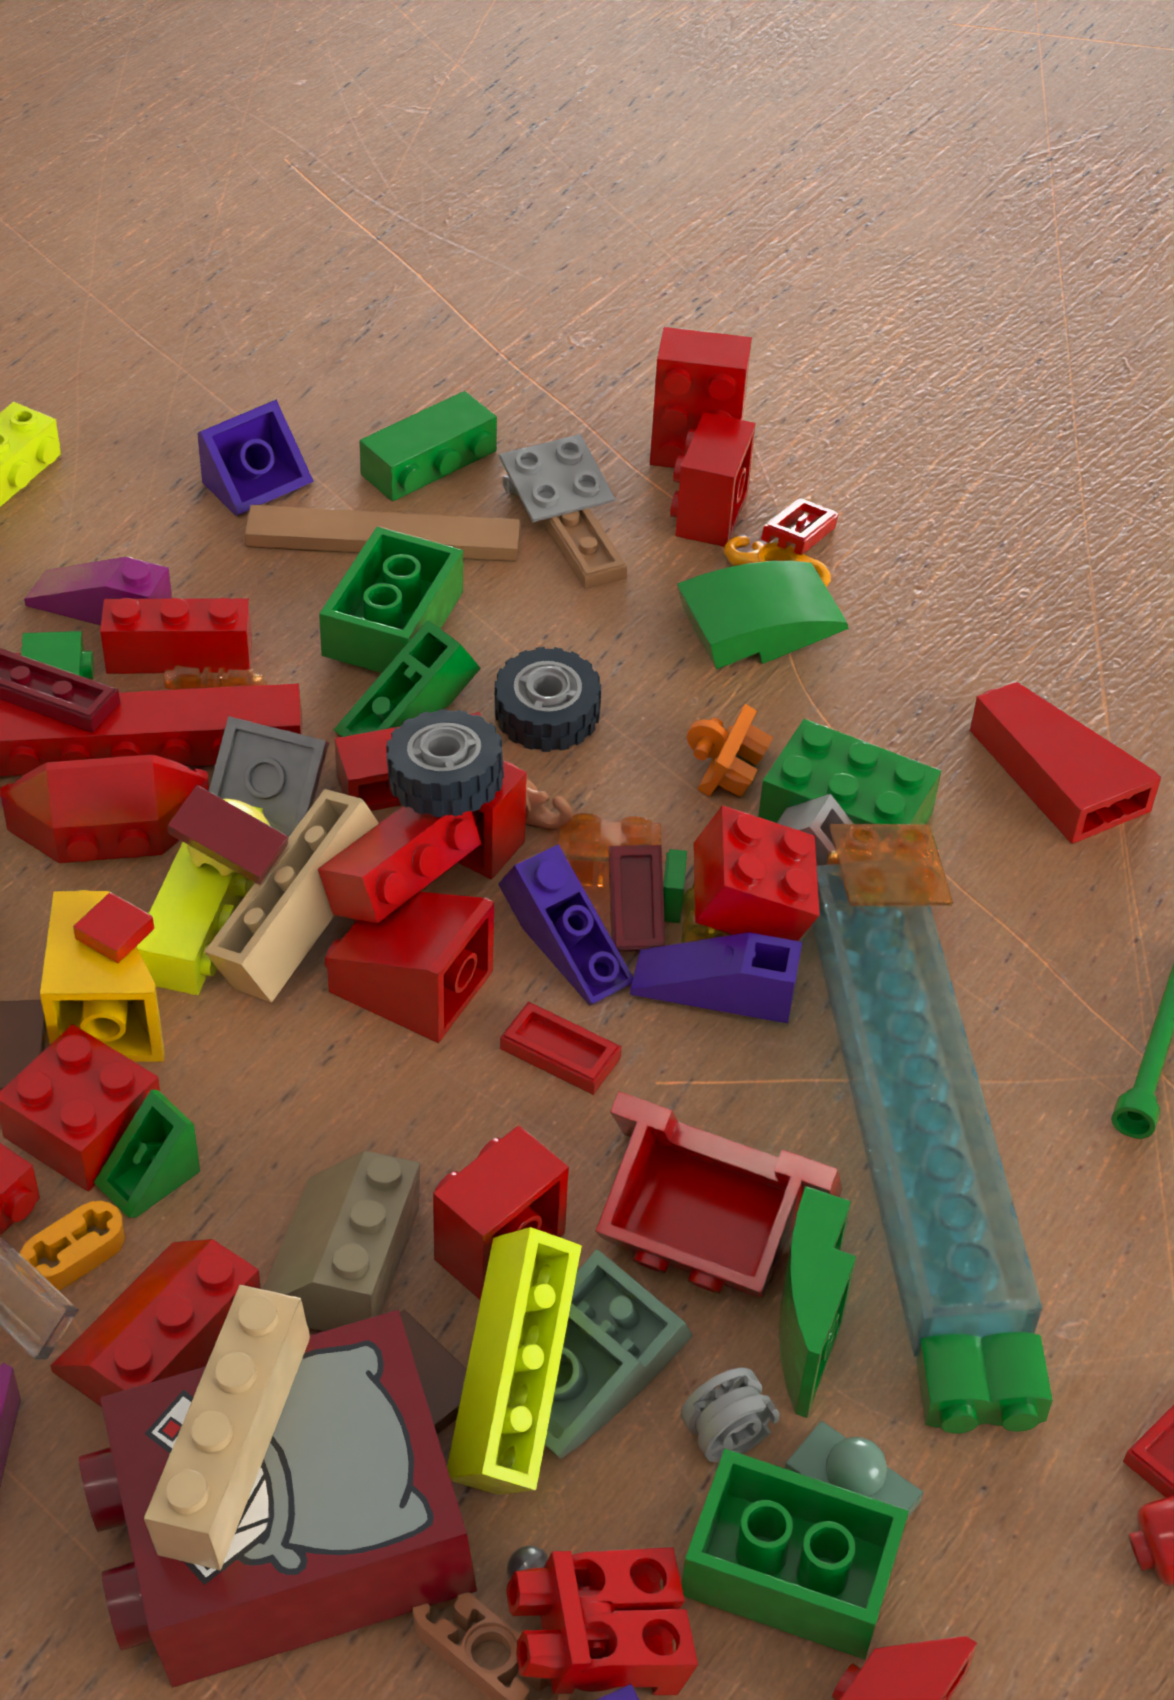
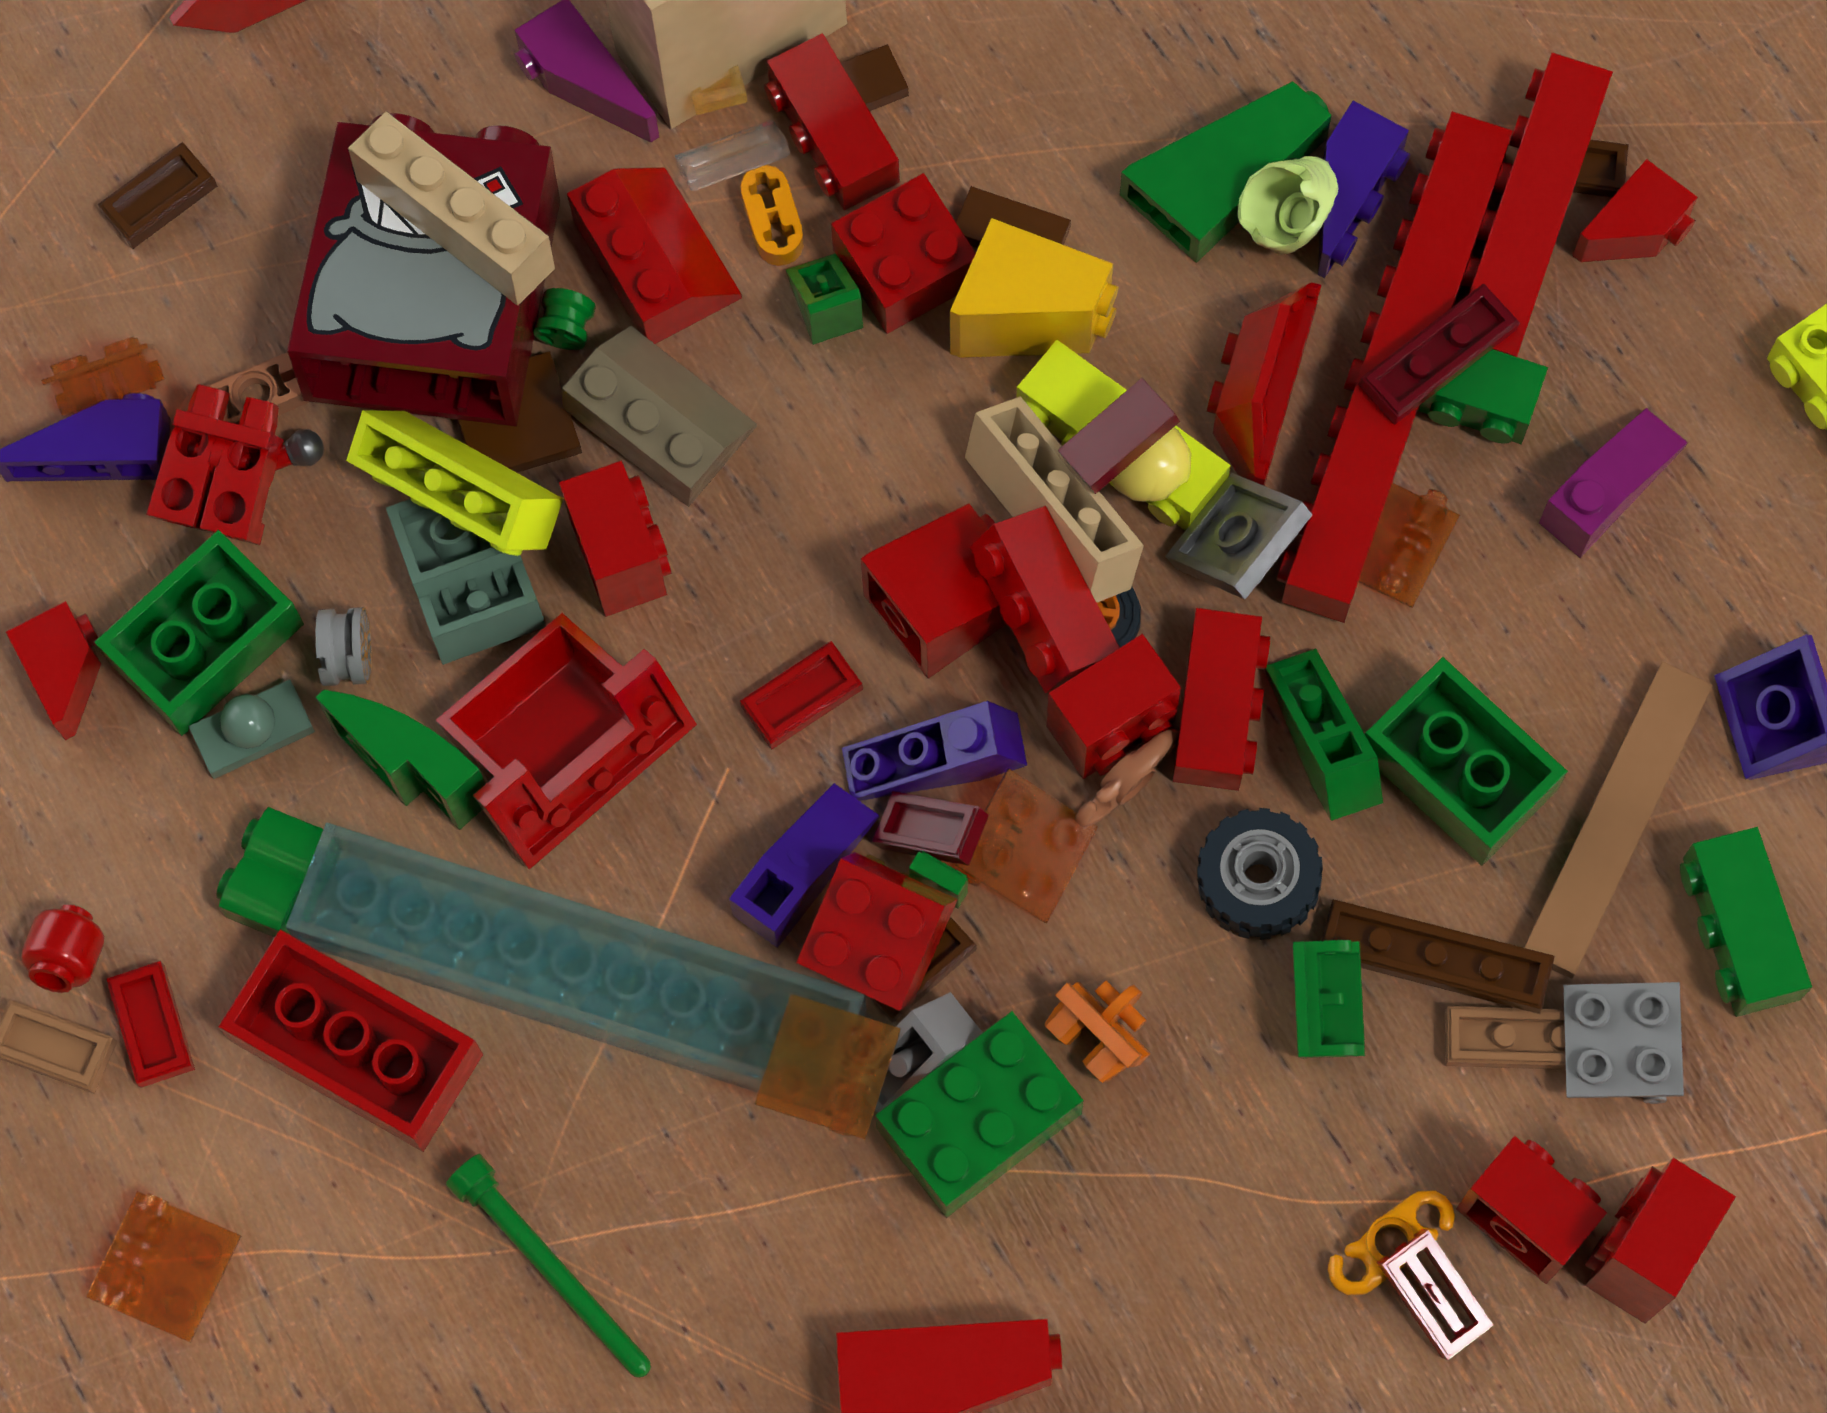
camera: 120 degrees right, 25 degrees up
(113, 927) = (1033, 294): red tile -> none
(164, 633) = (1504, 529): red brick -> none
(445, 762) = (1115, 622): black wheel -> none
(551, 585) = (1443, 956): none -> reddish brown tile
(629, 634) = (1329, 999): none -> green hinge
(760, 610) = (1302, 1168): green slope -> none
(1096, 1238) = (351, 1040): none -> red brick

